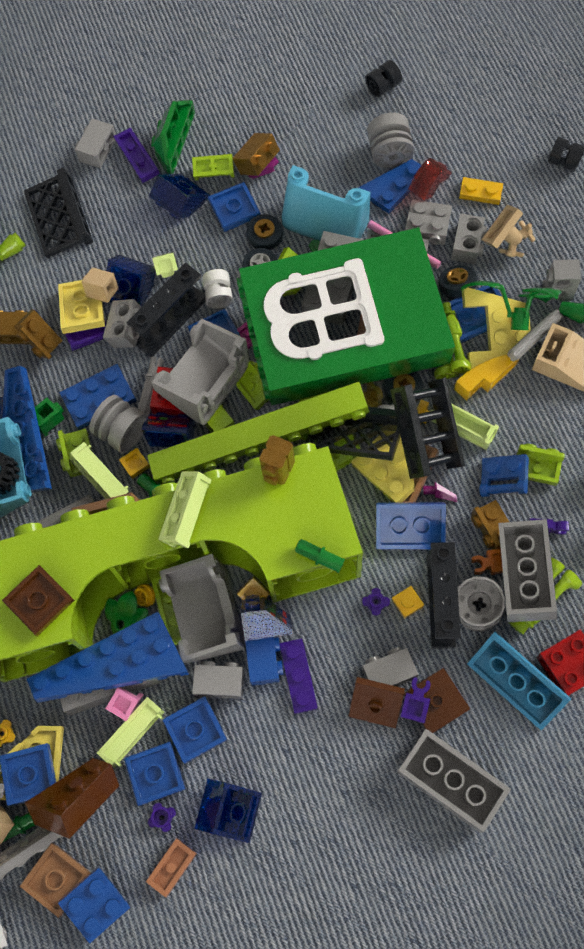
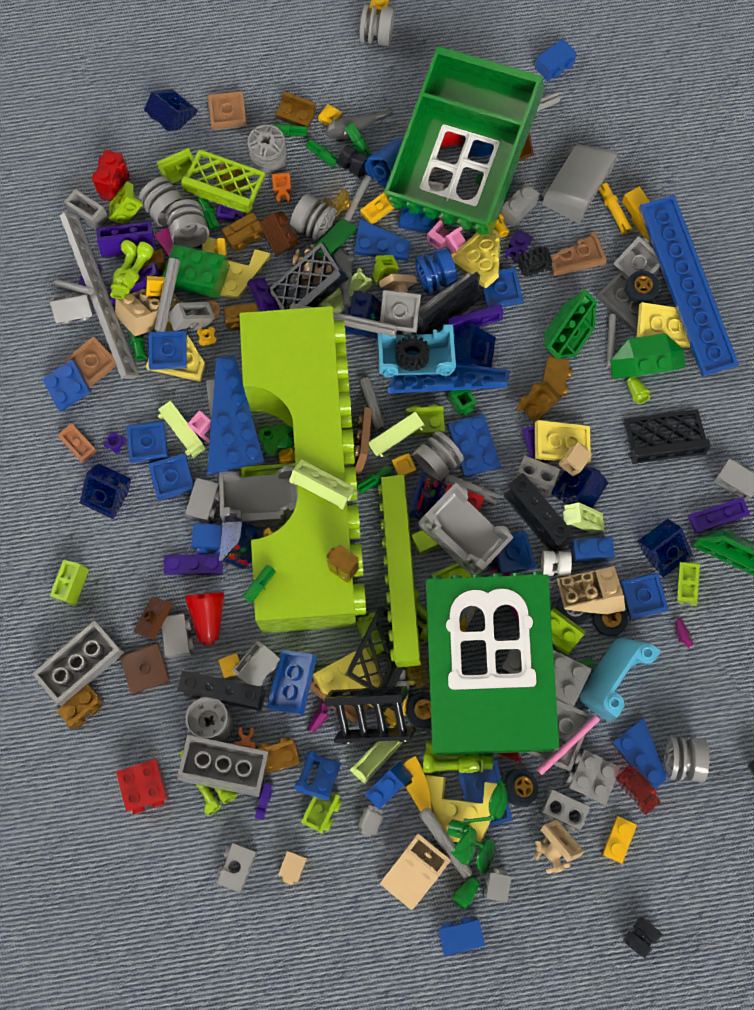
camera: 95 degrees right, 5 degrees up
(38, 600) = (276, 364): reddish brown plate -> none
(73, 798) = (140, 380): reddish brown wedge -> none
(195, 254) = (592, 550): none -> blue brick
(240, 242) = (592, 591): none -> tan slope
(256, 154) = (695, 626): pearl gold brick -> none
(355, 824) = (69, 582): none -> lime hinge
(356, 640) = (206, 615): none -> red cone
(382, 601) = (235, 645): dark purple plate -> none
(401, 569) = (256, 664): none -> light grey brick
(415, 705) = (143, 648): dark purple plate -> none
(494, 399) = (389, 785): none -> blue brick
(504, 766) = (80, 706): none -> pearl gold bracket
(518, 681) = (142, 738): dark azure slope -> none
(534, 415) = (370, 821): none -> light grey brick

